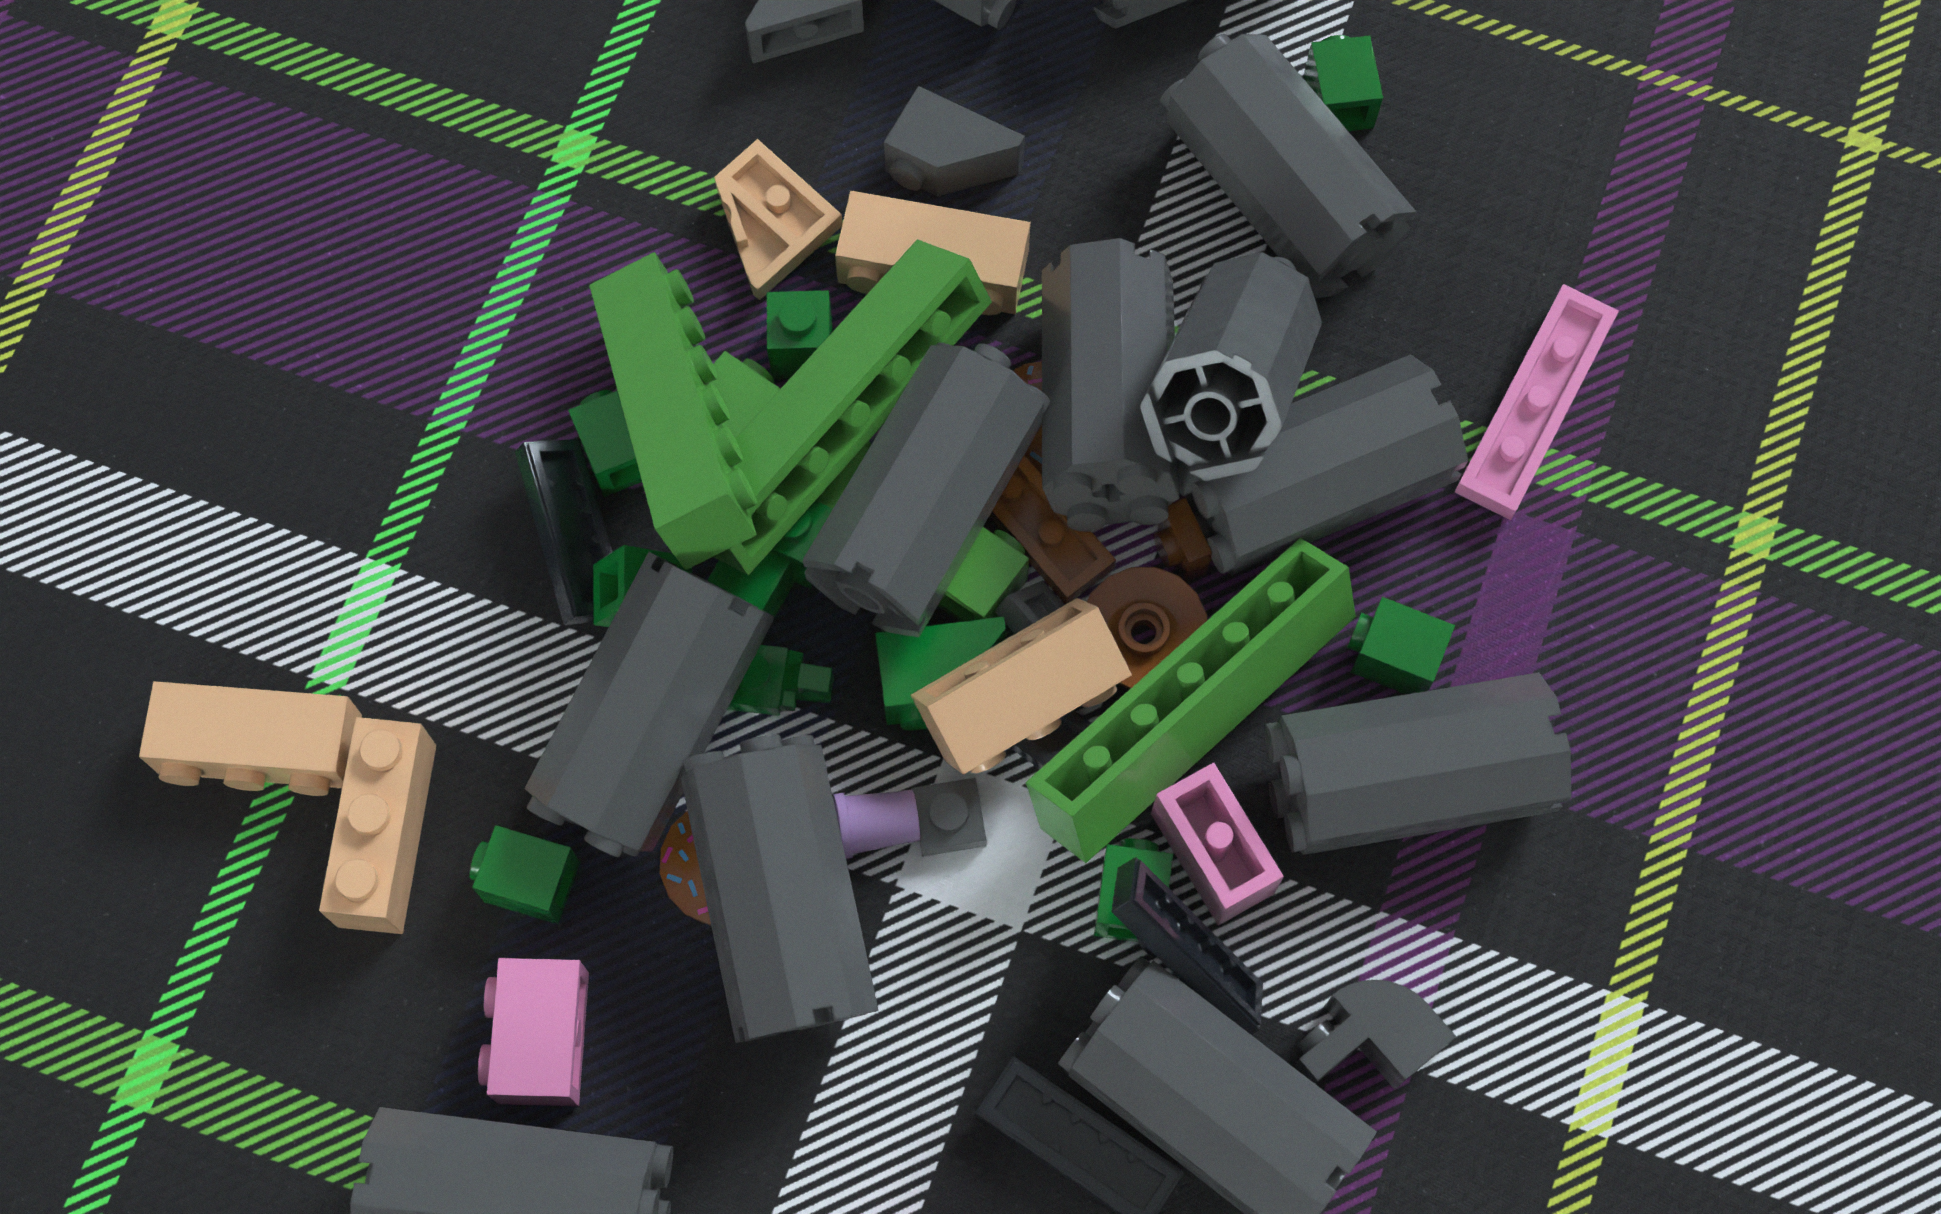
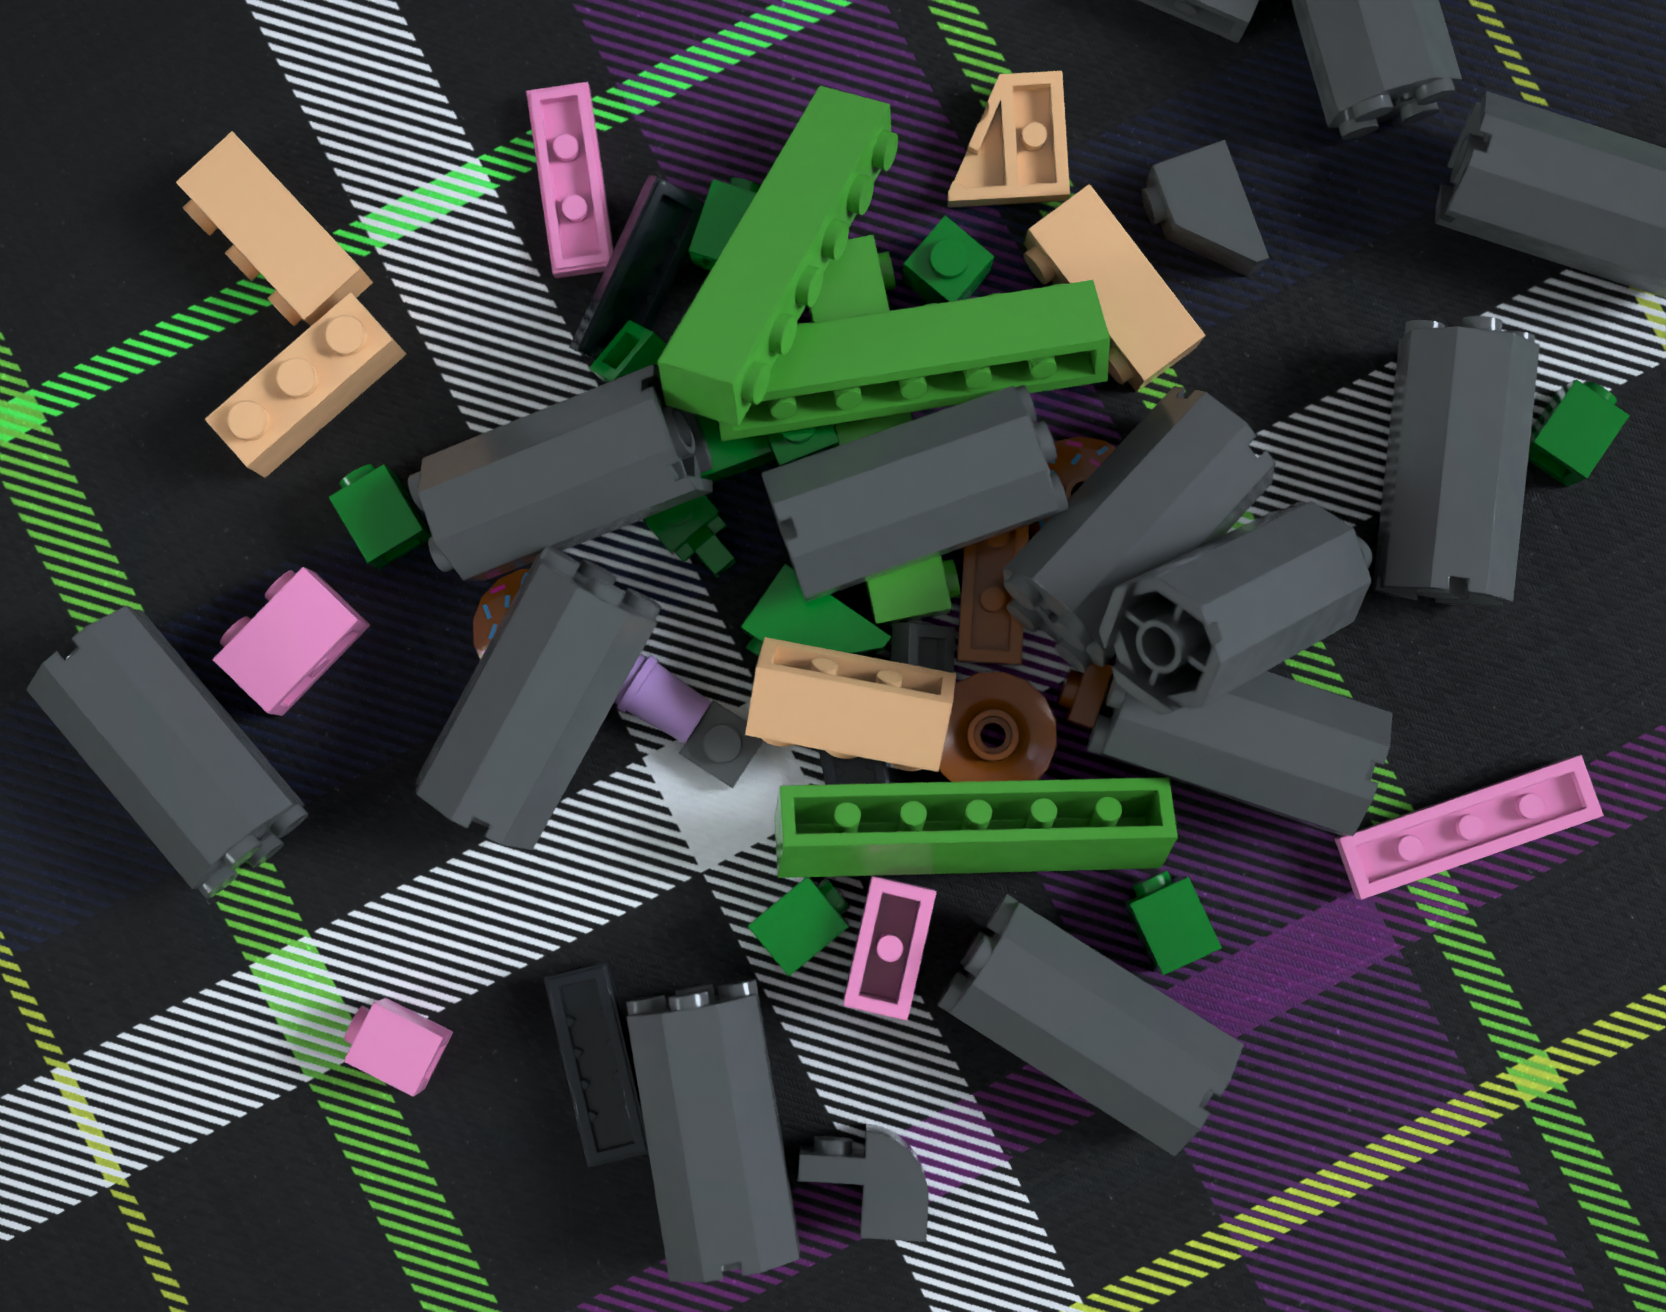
camera: 45 degrees right, 15 degrees up
(455, 511) = (571, 179): none -> bright pink tile
(1186, 945) = (791, 1006): black plate -> none

